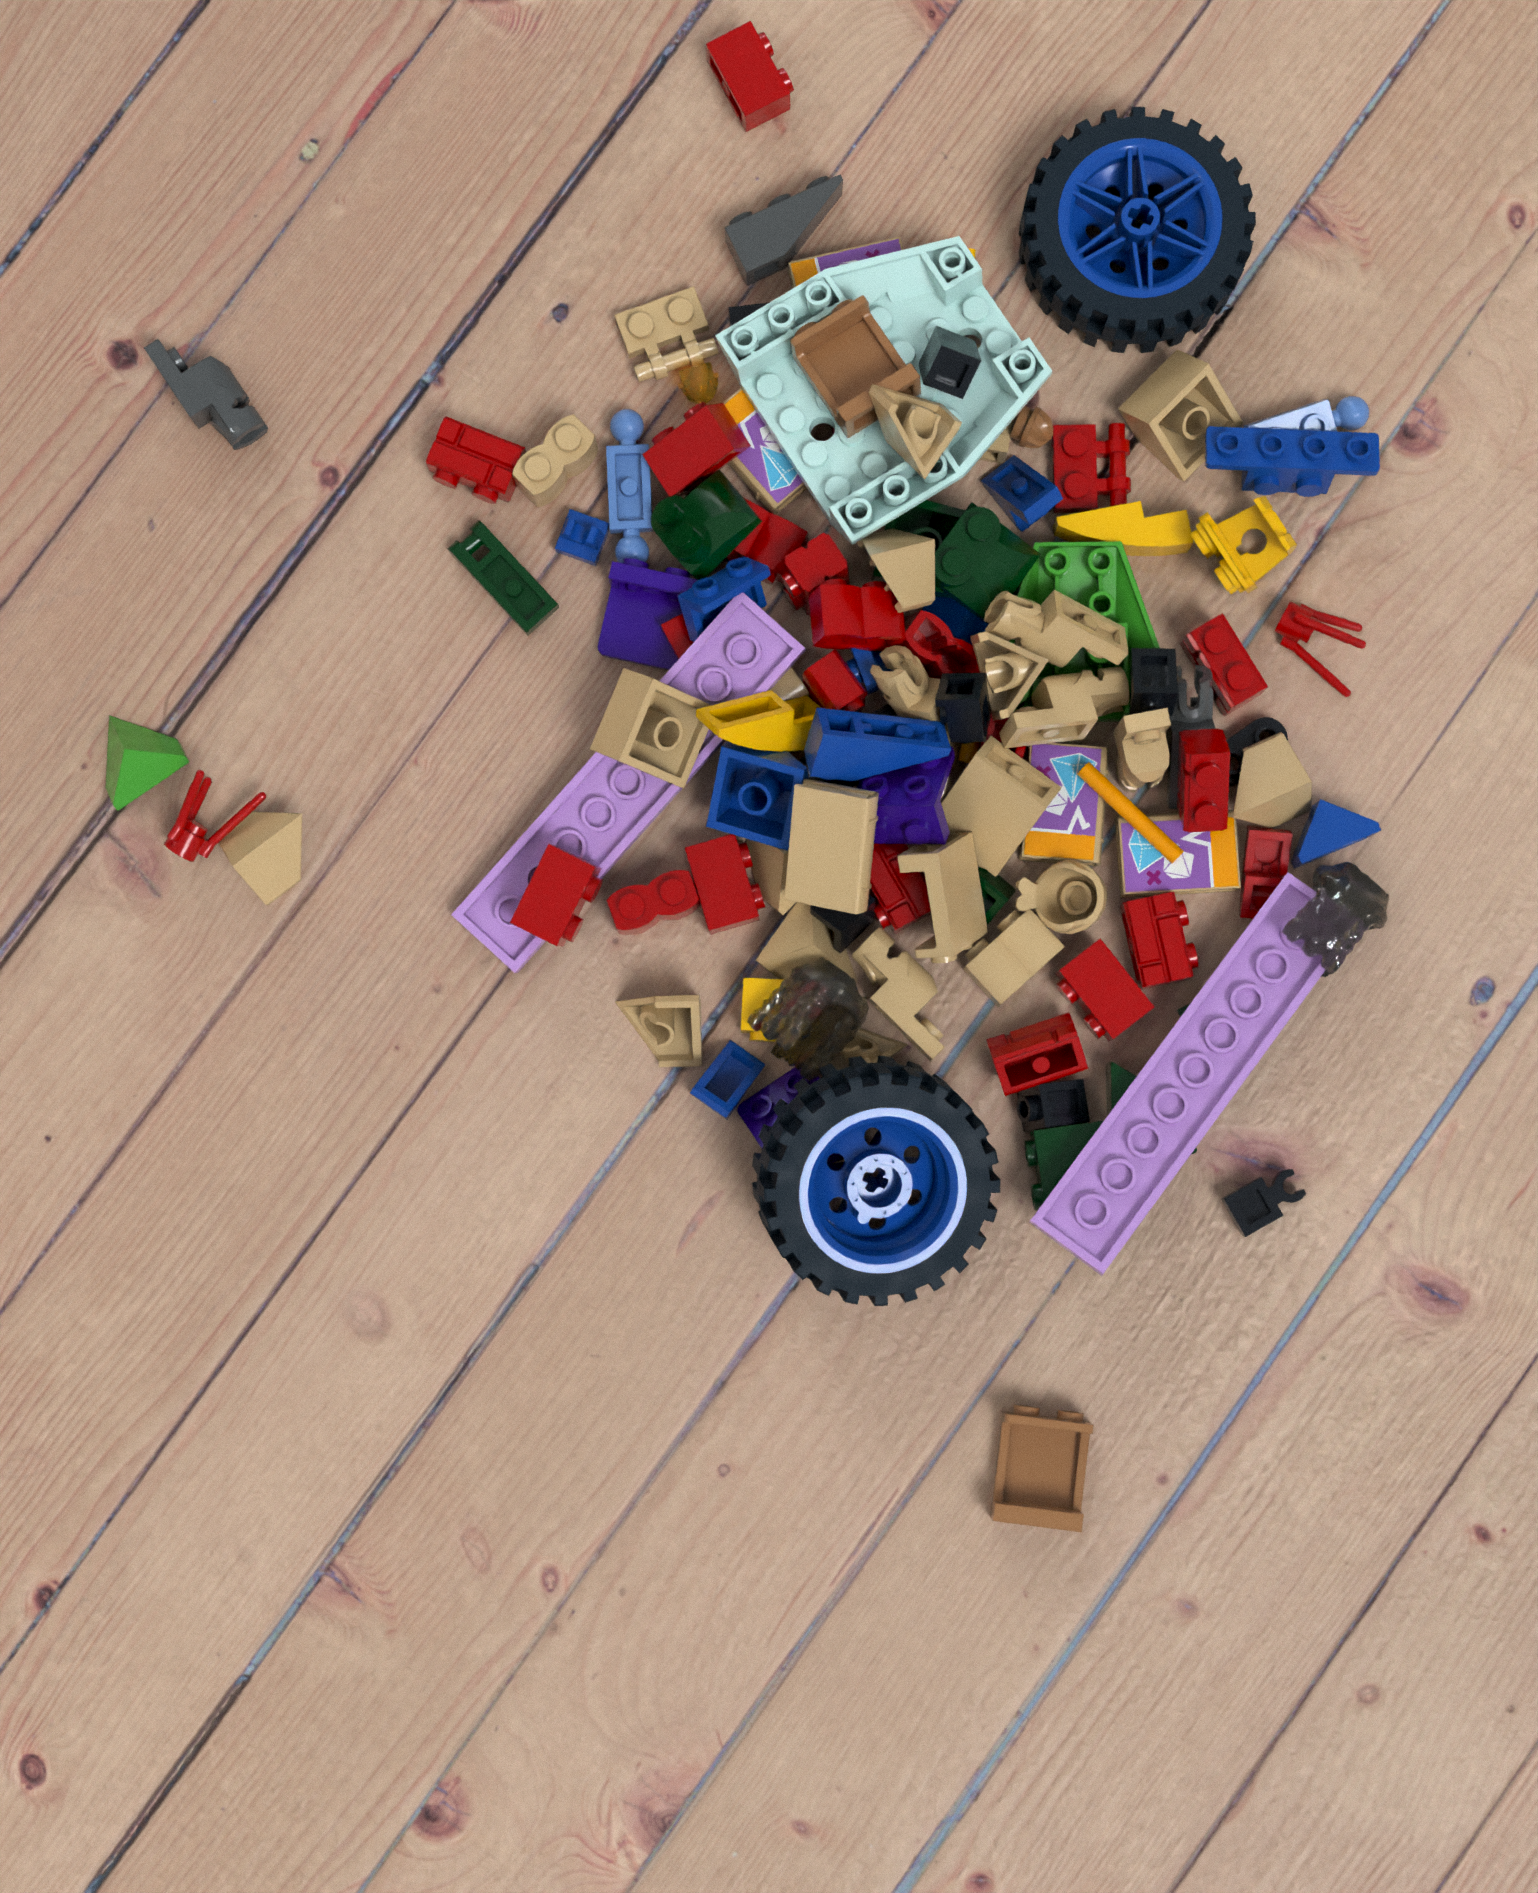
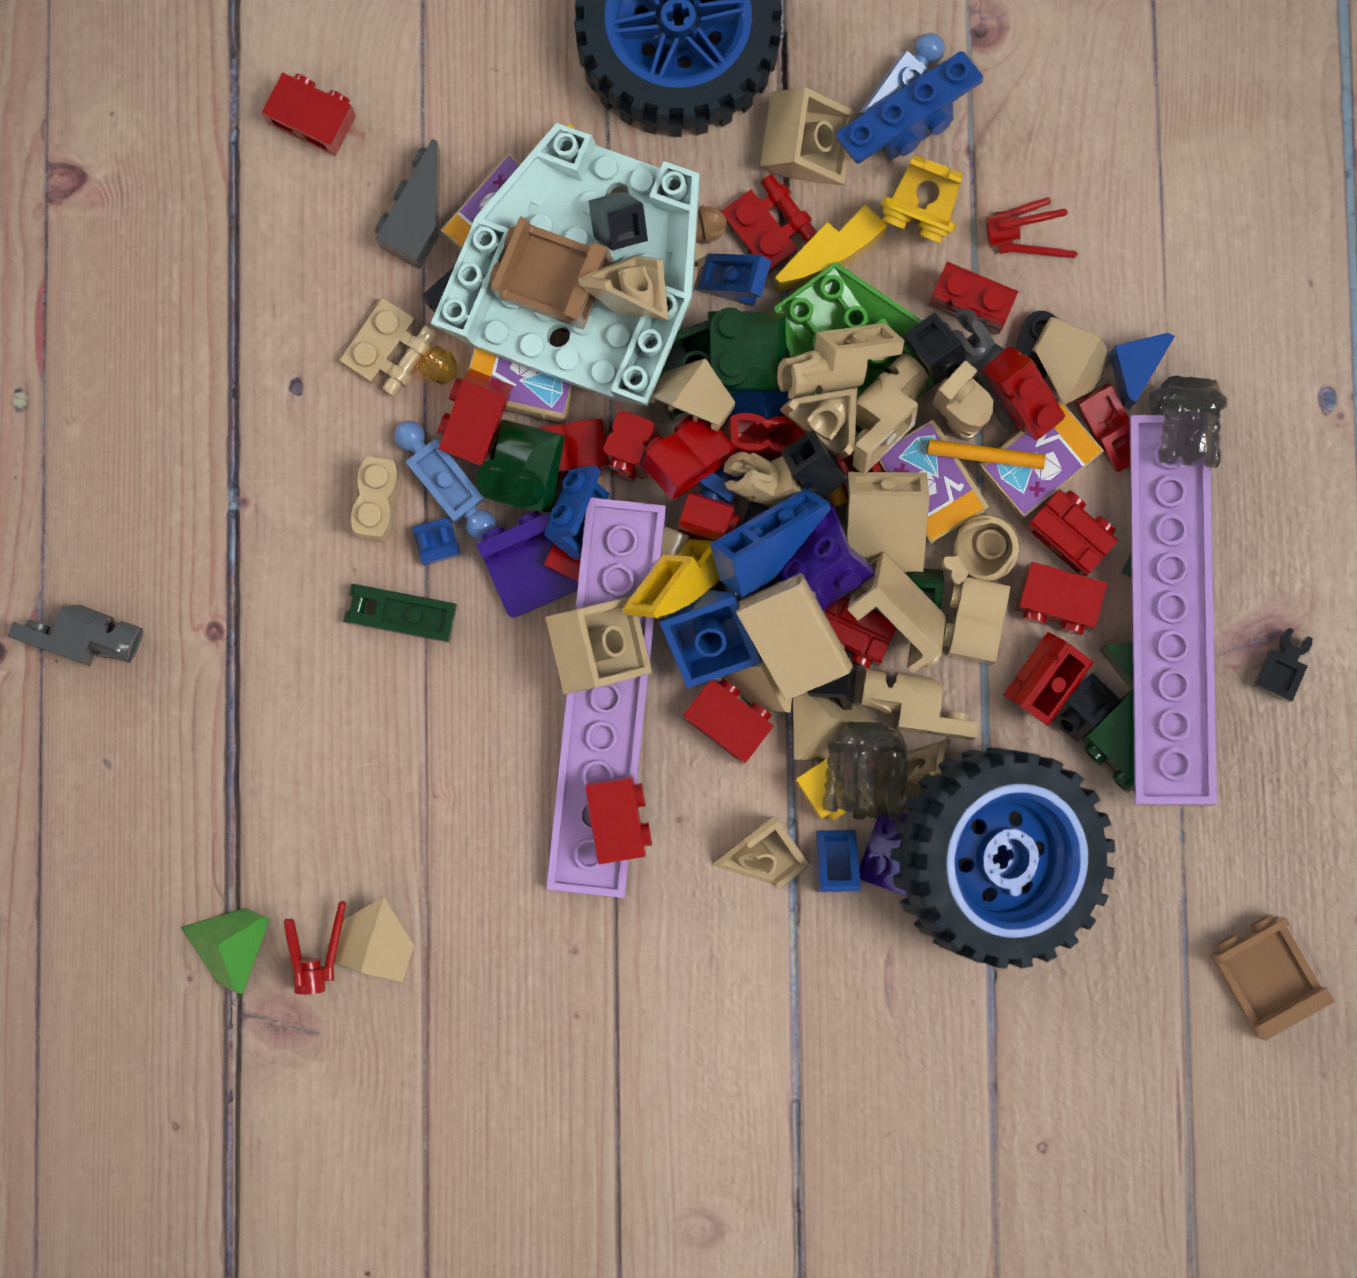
camera: 40 degrees left, 0 degrees up
(474, 460) = (316, 541): red brick -> none
(643, 906) = (682, 780): red brick -> none

